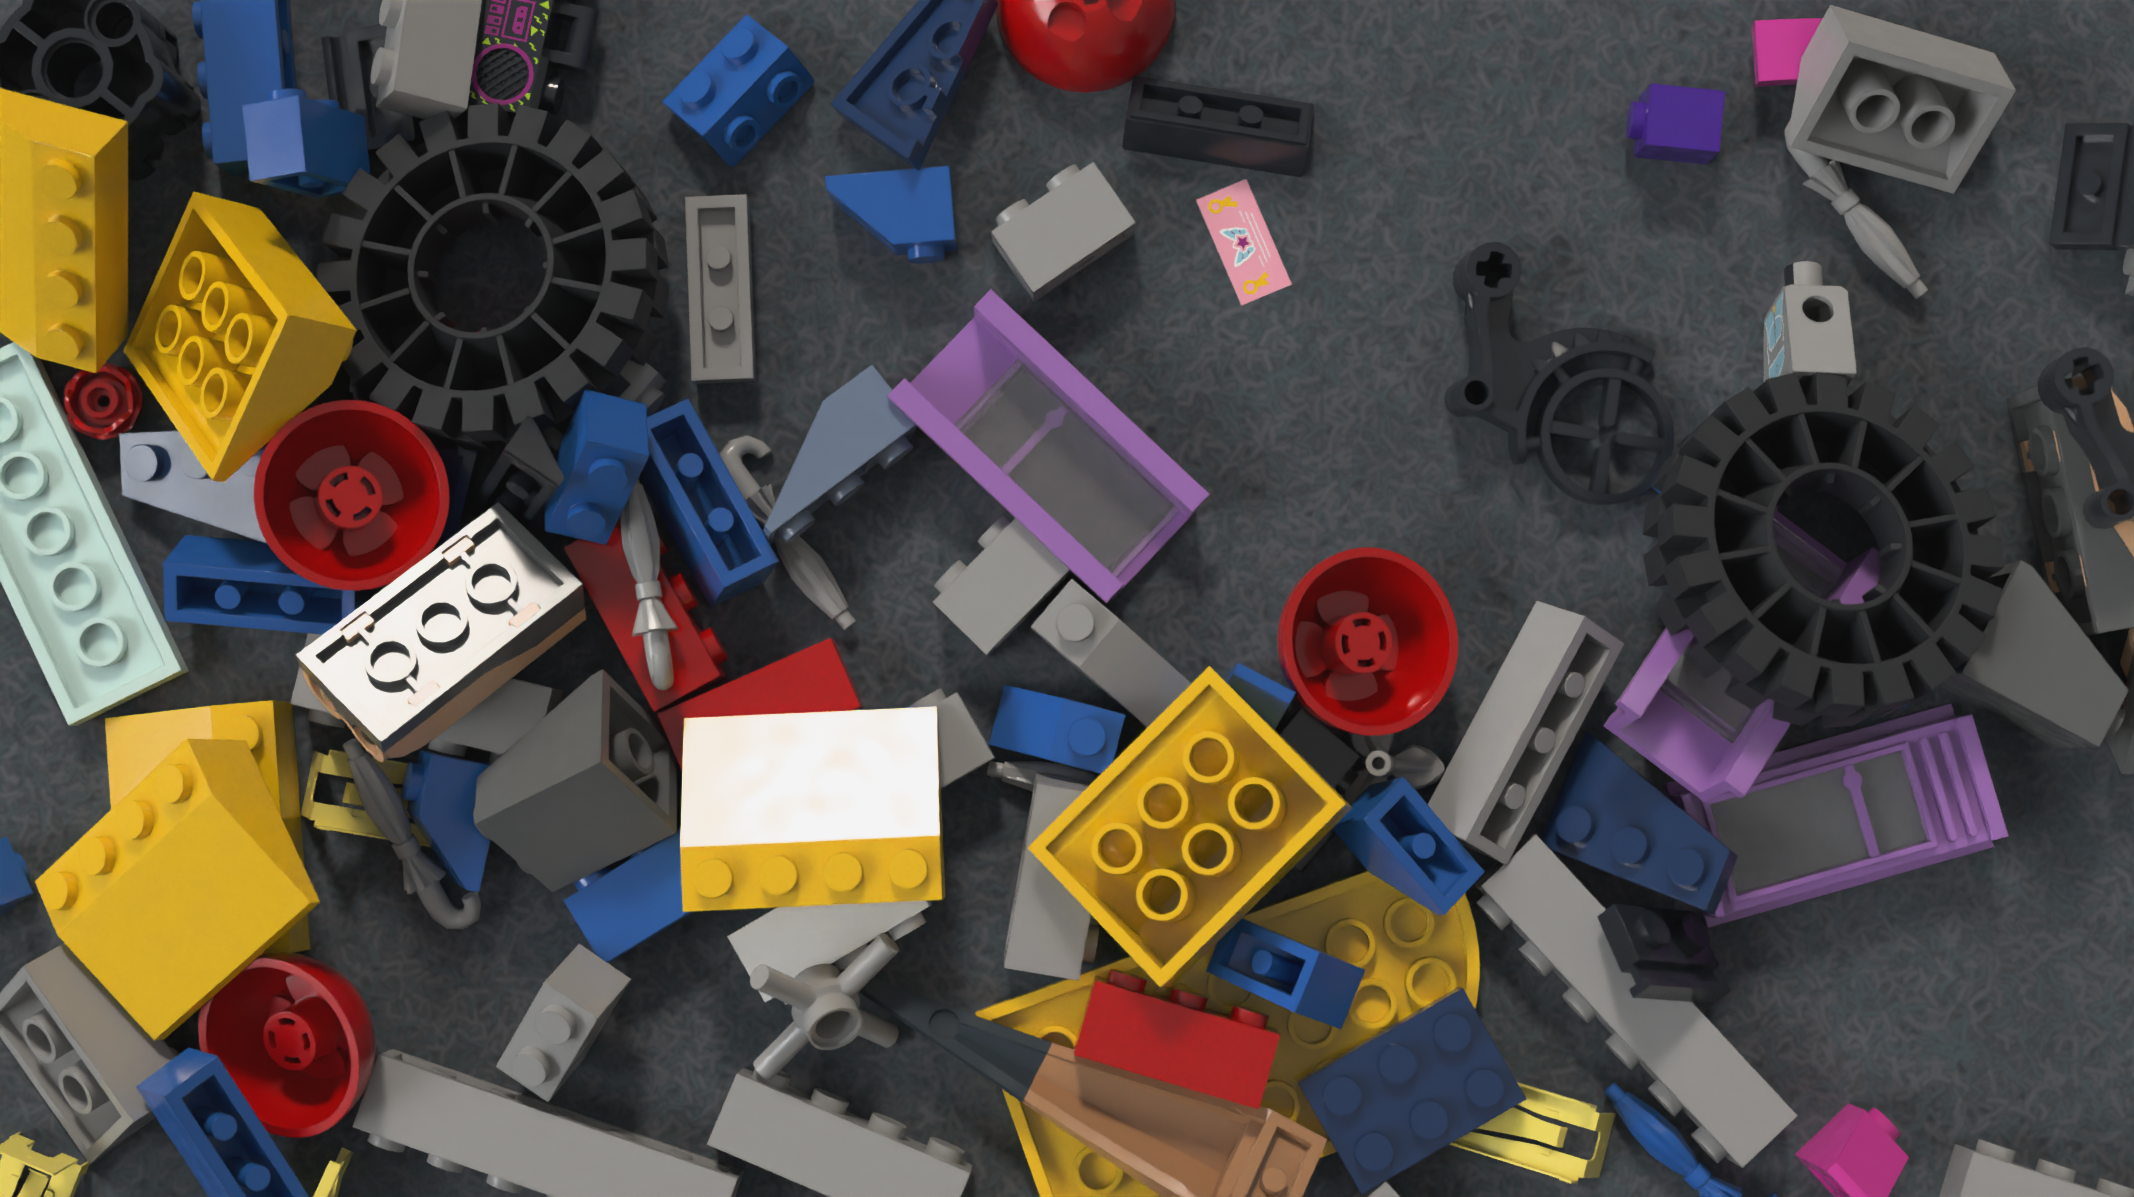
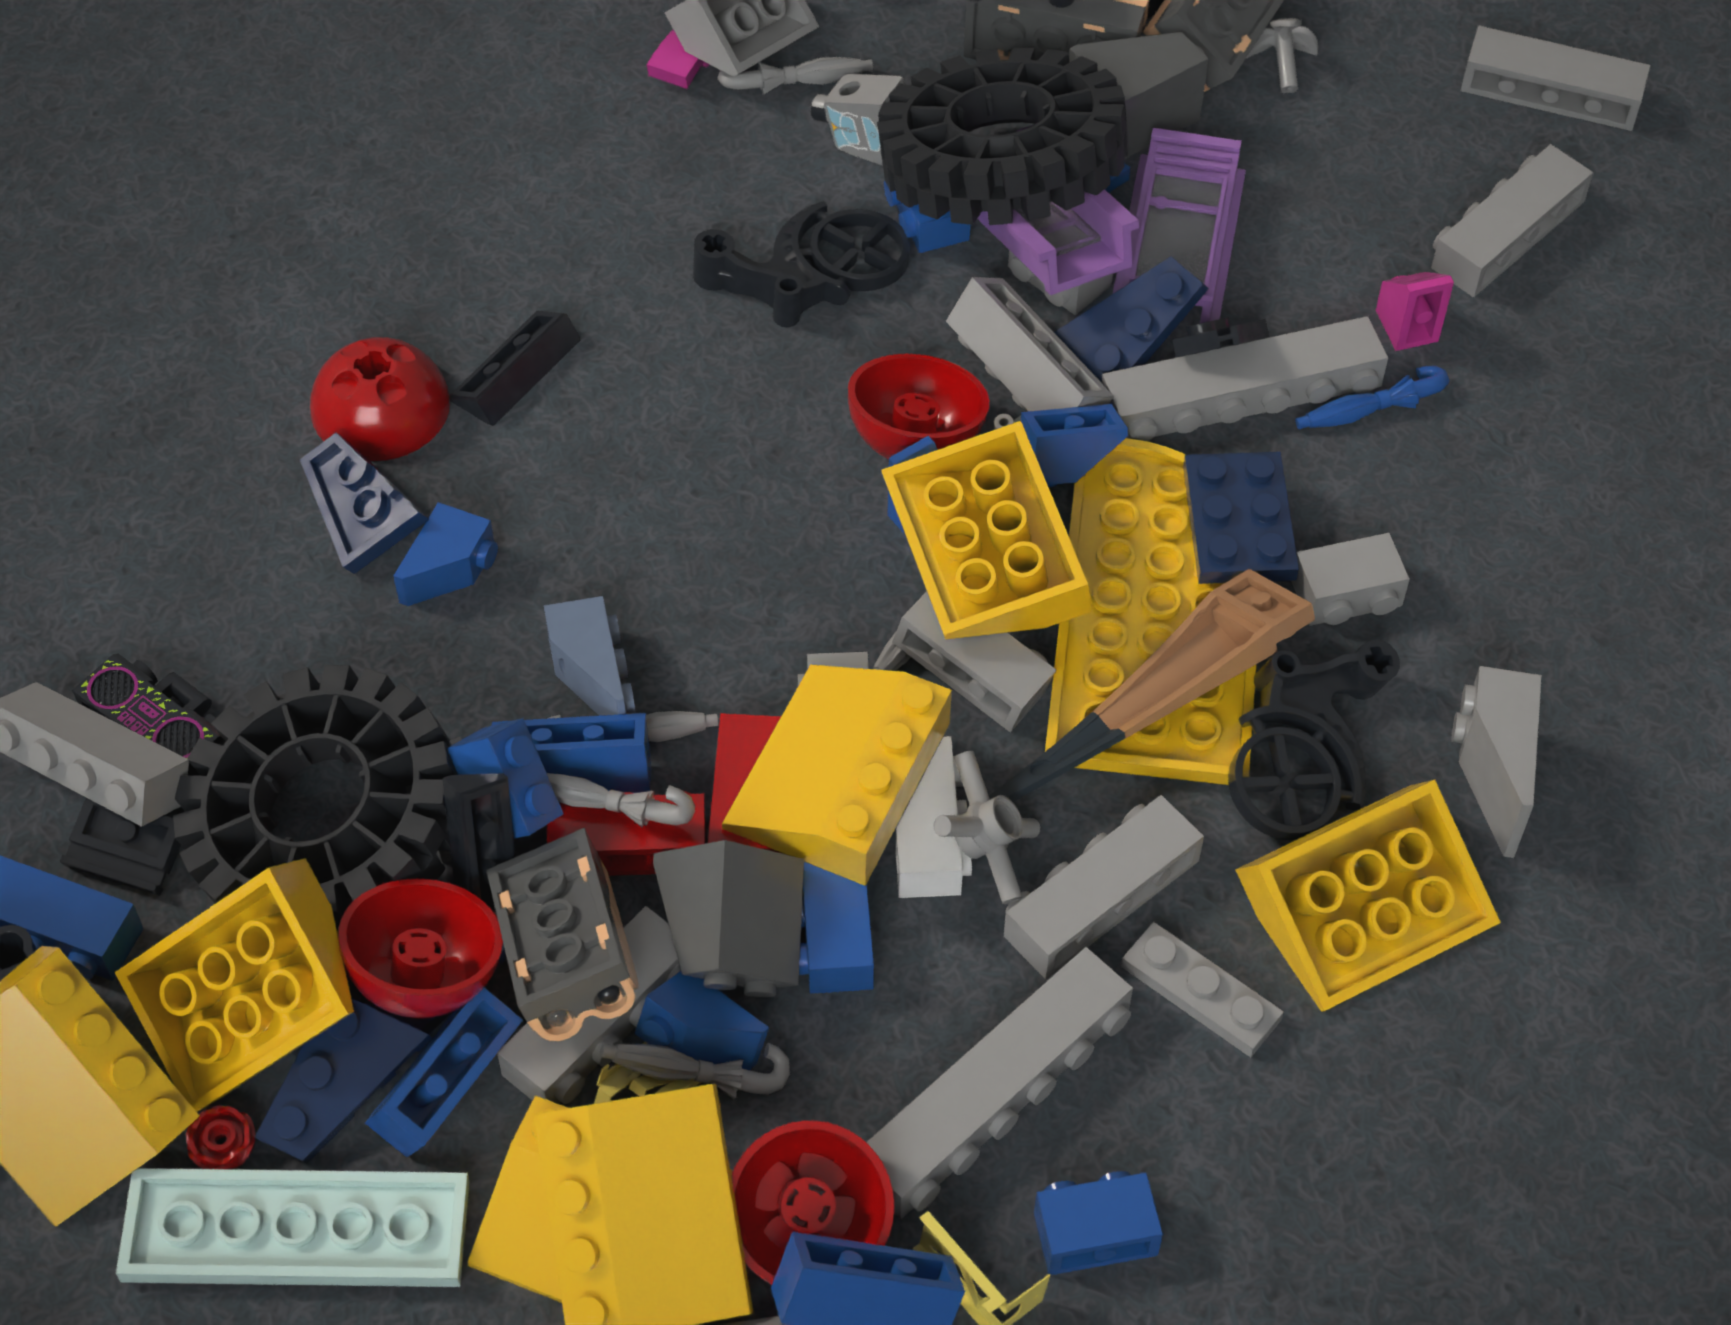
camera: 65 degrees left, 30 degrees down
(304, 143) = (138, 874): blue brick -> none
(563, 1022) = (903, 1010): light grey brick -> none
(720, 289) = (451, 697): light grey plate -> none
(740, 90) = (292, 616): blue bracket -> none
(999, 585) = (747, 608): light grey brick -> none
(1050, 448) = (668, 534): piece -> none
(1056, 729) = (871, 611): blue slope -> none
(1062, 229) = (526, 471): light grey brick -> none
(1109, 654) = (838, 567): light grey slope -> none
(1177, 1039) = (1129, 626): red brick -> none
(1243, 242) = (602, 387): bright pink sticker -> none
(1286, 972) = (1120, 541): blue slope -> none
(1539, 1158) = (1293, 448): light yellow piece -> none
(1676, 123) = (684, 129): dark purple brick -> none

